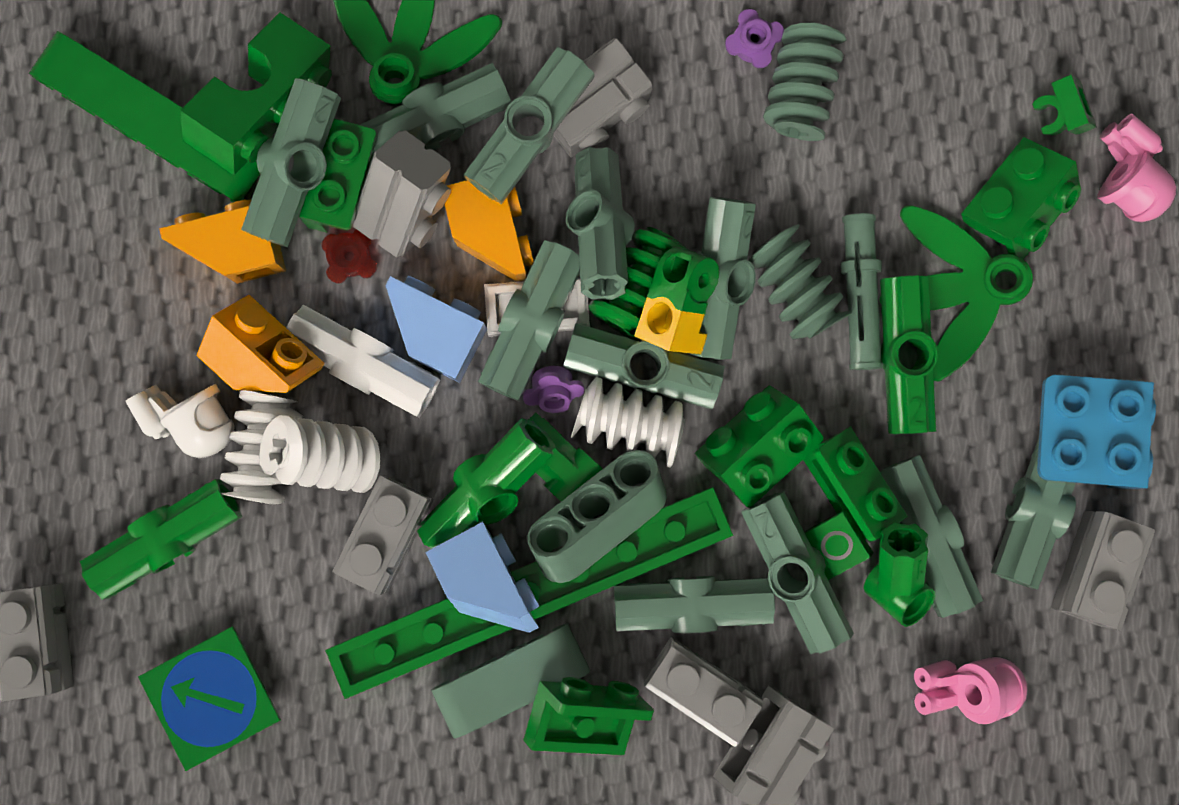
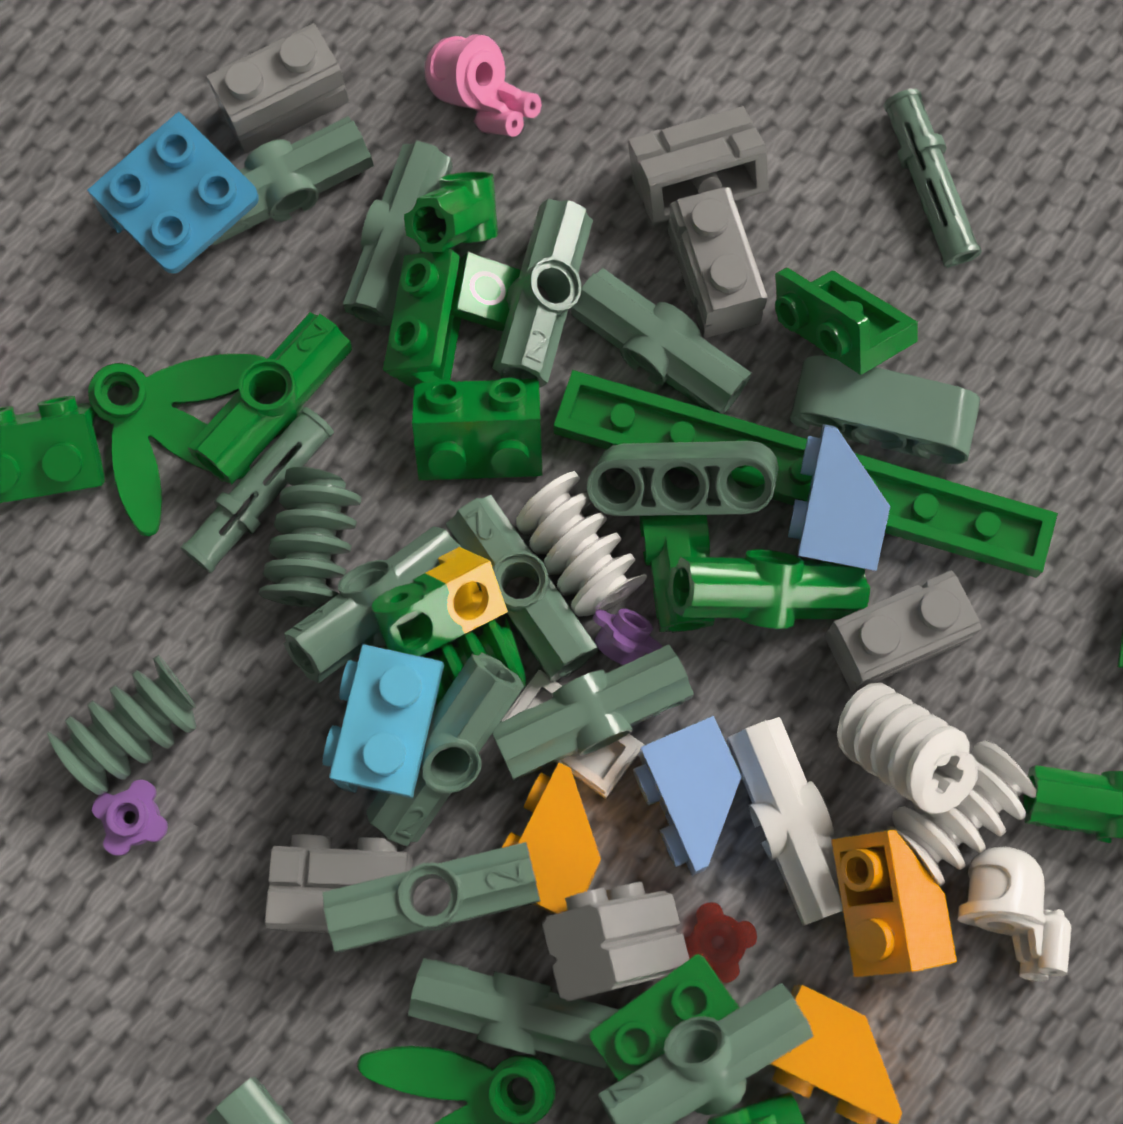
camera: 135 degrees left, 10 degrees down
(644, 199) = (384, 721): none -> medium azure bracket

